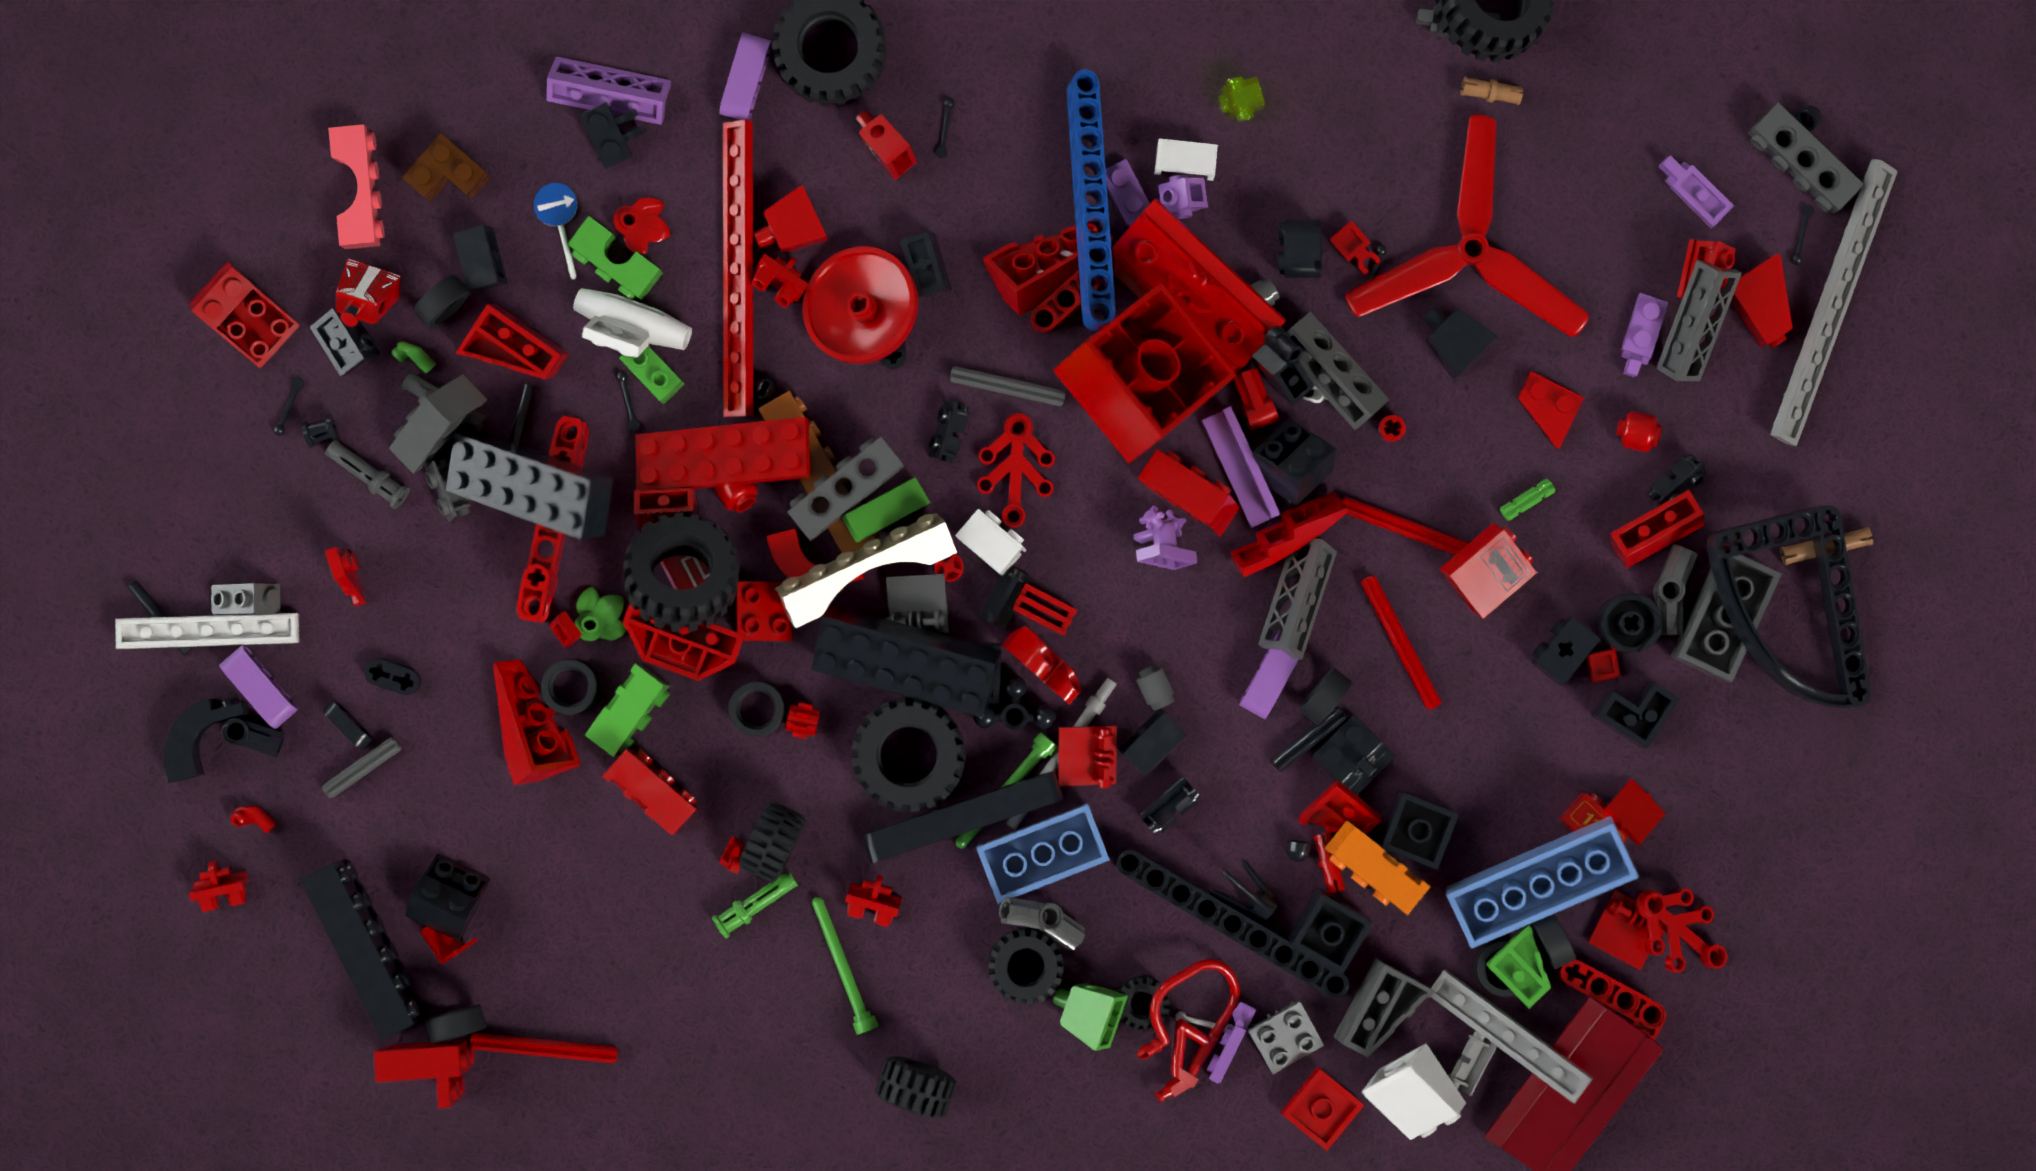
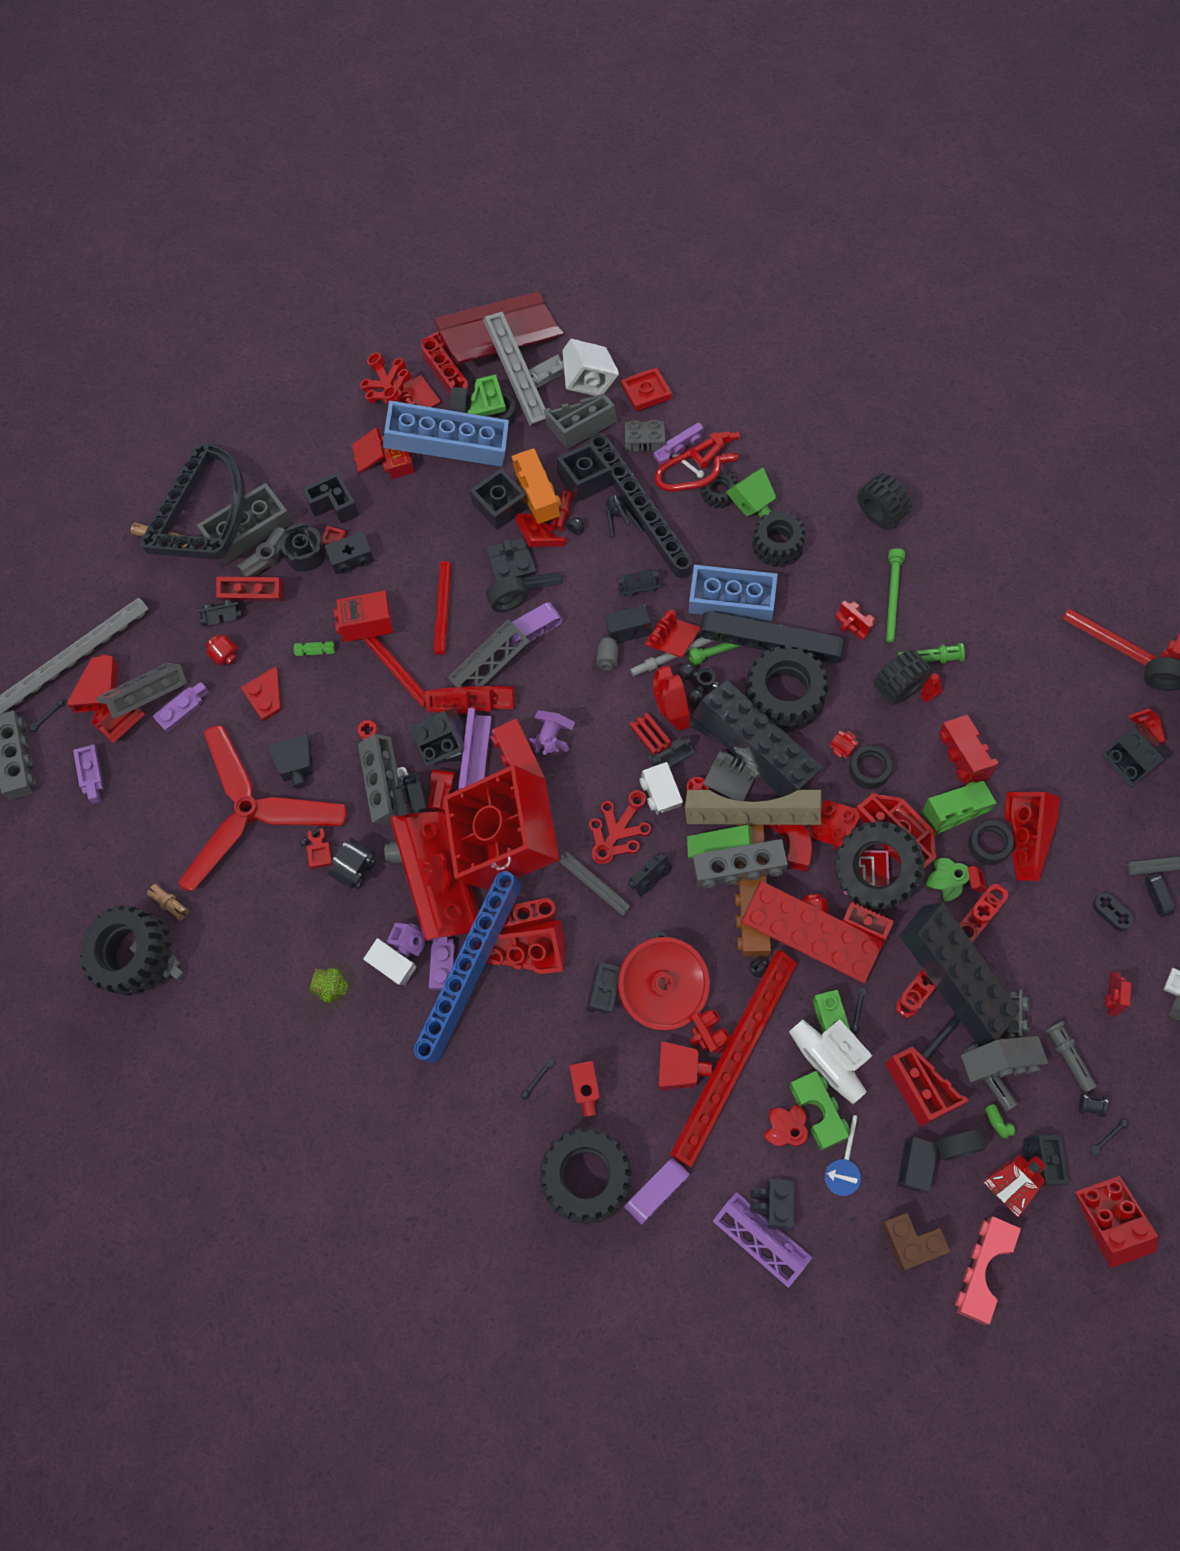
camera: 140 degrees left, 20 degrees down
(1056, 923) = (754, 557): dark grey piece -> none

